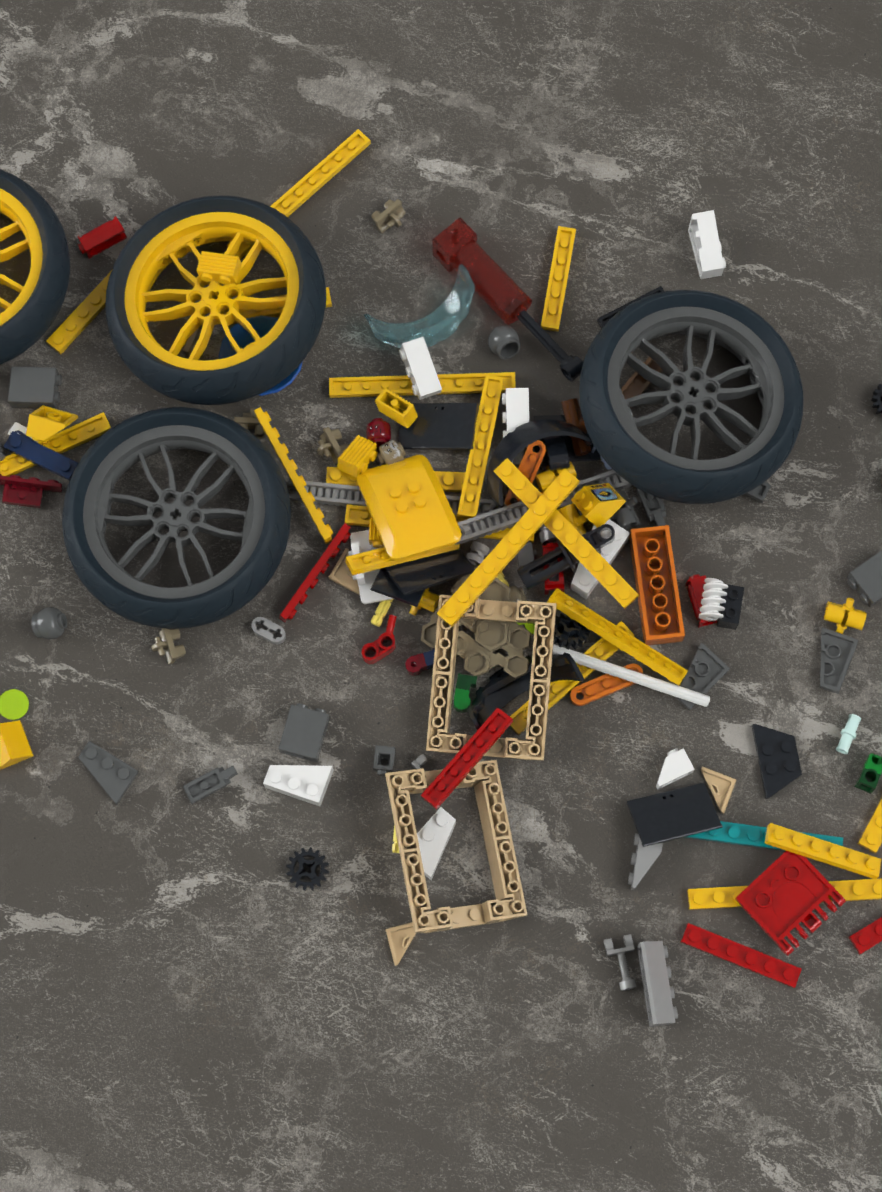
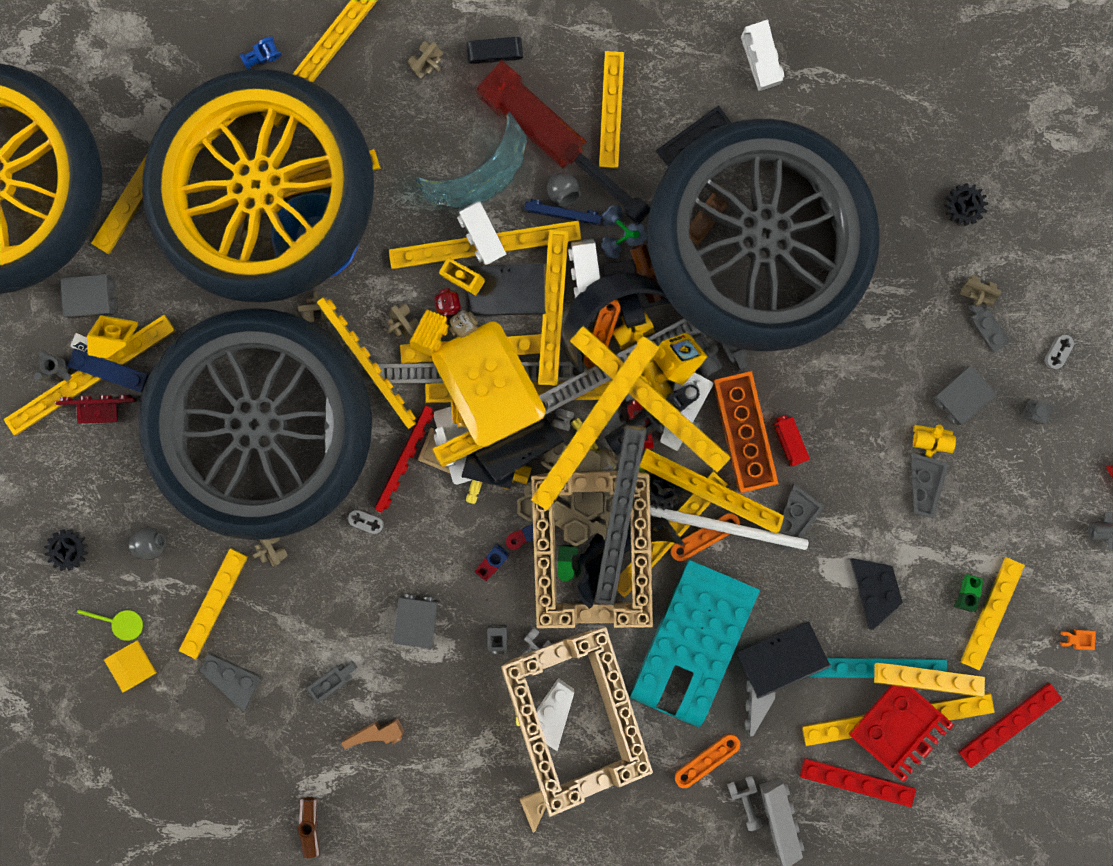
camera: 10 degrees left, 15 degrees up
(101, 238) = (129, 121): red window -> none
(103, 693) = (213, 603): none -> yellow plate
(161, 943) = (309, 839): none -> reddish brown piece
(218, 267) = (255, 161): yellow brick -> none
(237, 190) = (261, 53): none -> blue connector
(261, 841) = (388, 733): none -> medium nougat slope
(299, 781) = (418, 671): white wedge -> none
(315, 863) = (432, 747): black gear -> none
(377, 646) = (475, 525): red beam -> none
(388, 684) = (492, 562): none -> leg
(446, 213) = (494, 50): none -> black beam
(466, 758) = (578, 636): red plate -> none
(500, 364) = (537, 207): none -> dark blue plate
(525, 630) = (620, 514): none -> dark grey plate
(566, 389) = (633, 234): none -> sand blue plant
(585, 912) = (707, 760): none -> orange plate
(587, 792) = (698, 650): none -> teal piece
(674, 768) = (778, 613): white slope -> none
(712, 599) = (804, 445): white piece -> none
(719, 786) = (825, 624): tan tile -> none
(732, 607) = (820, 444): black brick -> none
(848, 734) = (945, 557): light aqua pin -> none

